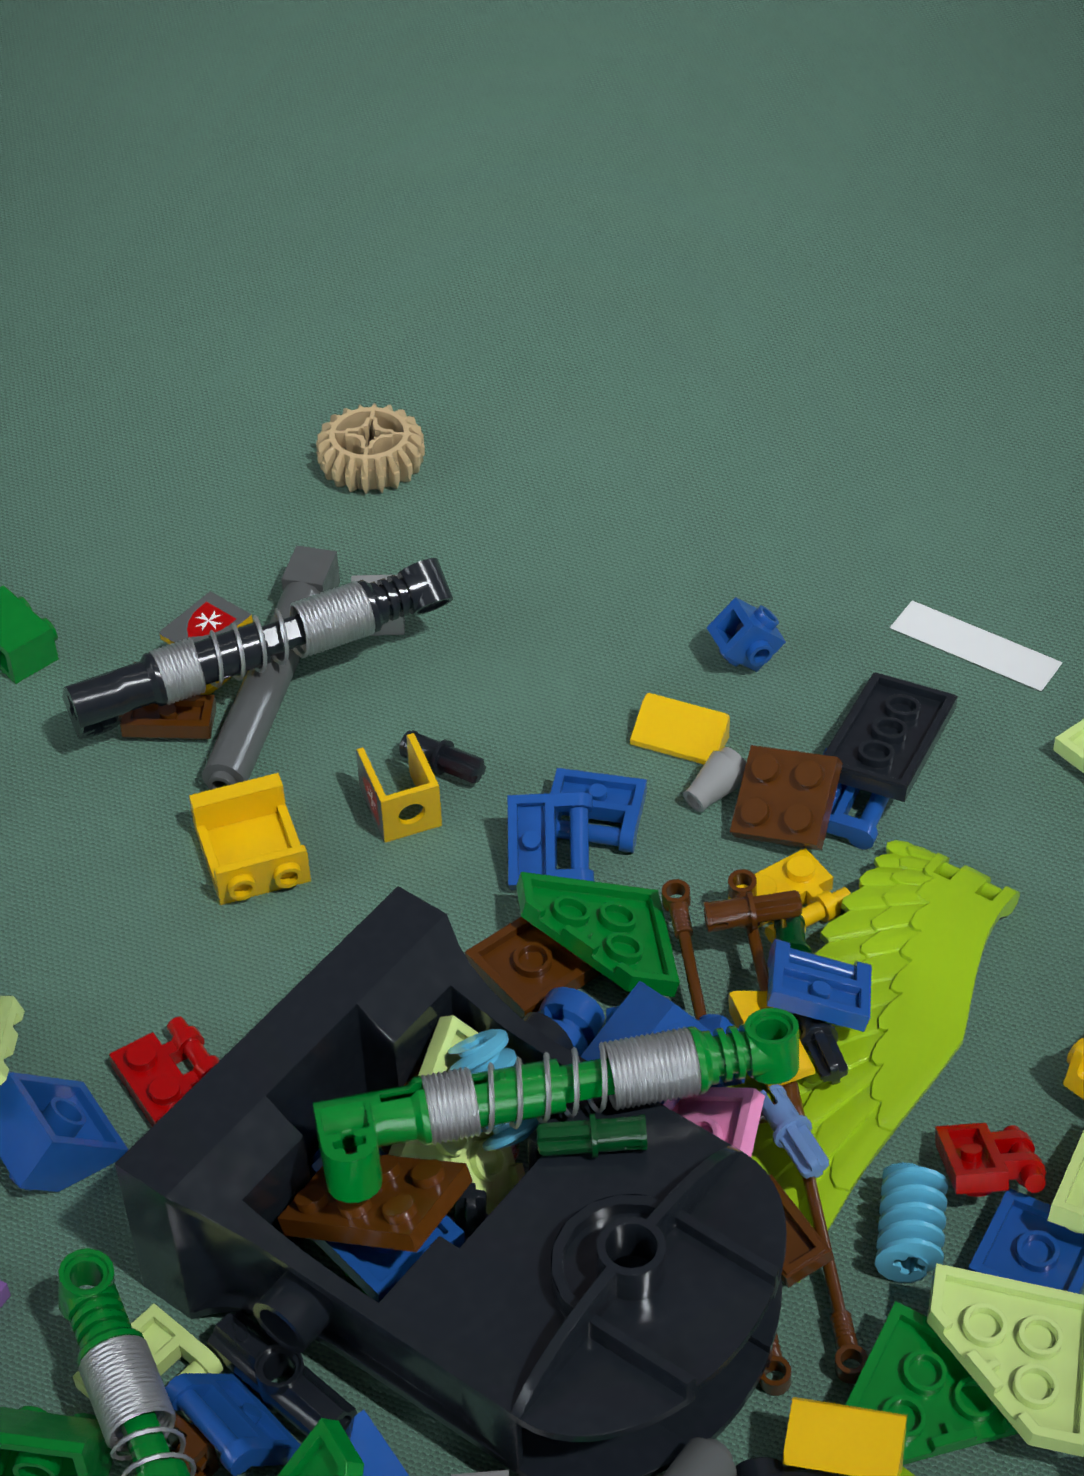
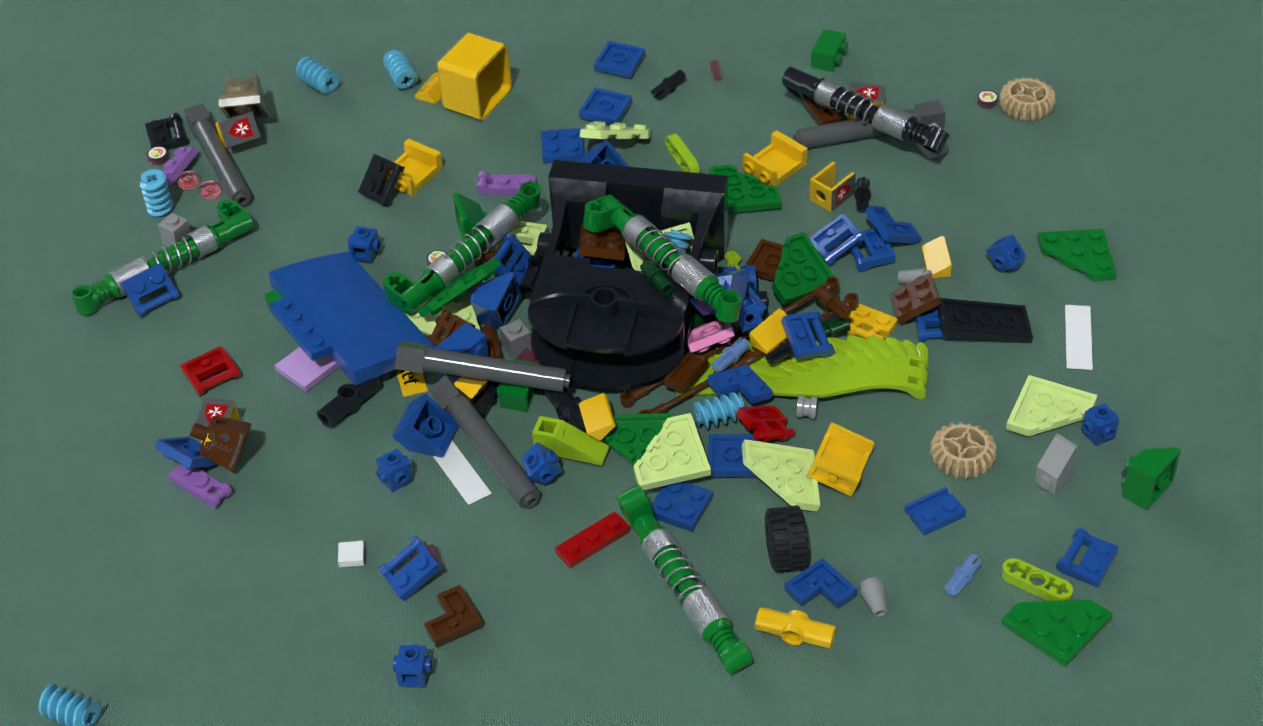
camera: 65 degrees right, 0 degrees up
(87, 979) = (681, 154): none -> lime beam
(289, 926) = (746, 191): none -> green plate
(319, 496) = (987, 99): none -> tile
(588, 750) = (889, 229): none -> blue plate
(782, 551) = (1080, 250): none -> green plate
(863, 1142) = (742, 380): none -> blue plate
(969, 1077) = (807, 407): none -> light grey wheel

